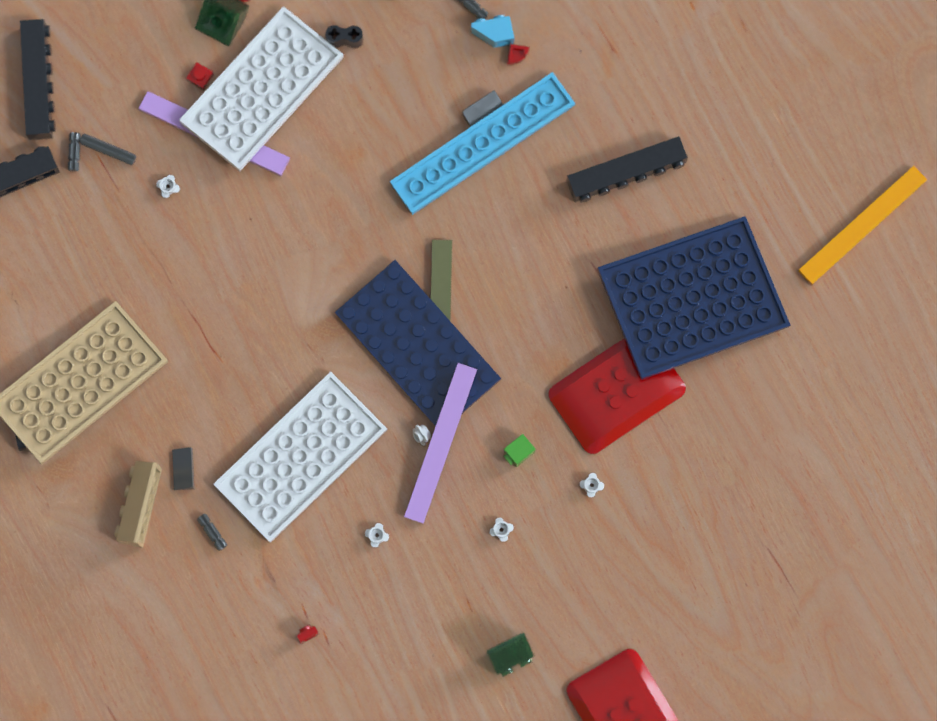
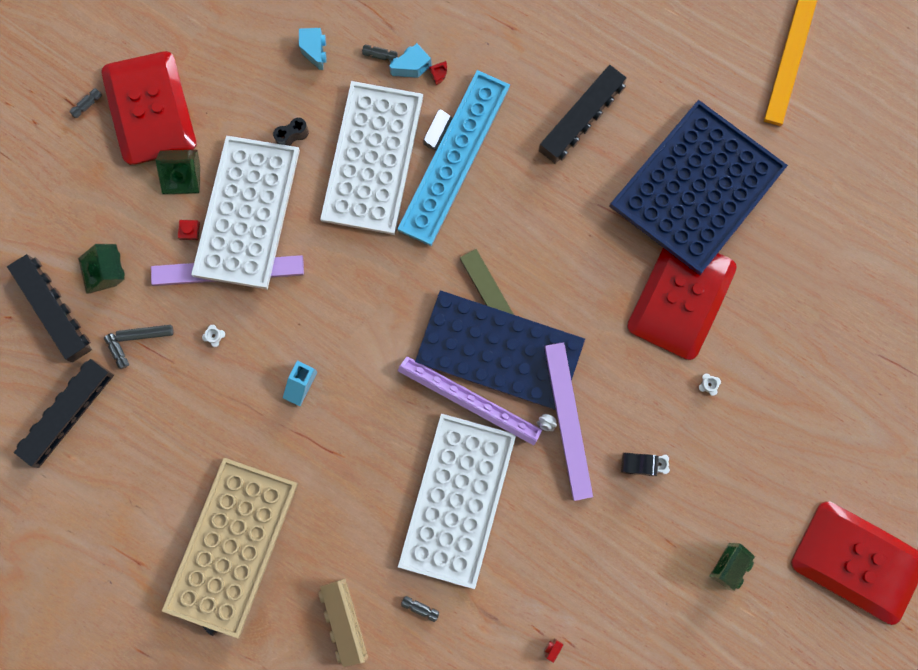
camera: 30 degrees left, 0 degrees up
(102, 68) = (101, 267): none -> clear green slope
(183, 468) = (364, 568): dark grey slope -> none
(219, 272) = (299, 383): none -> medium azure slope
(363, 375) = (470, 400): none -> lavender tile
(378, 529) = (558, 523): white plate -> none
(406, 101) = (372, 158): none -> white plate
(481, 518) = (639, 464): none -> black axle
(518, 451) = (635, 390): bright green brick -> none

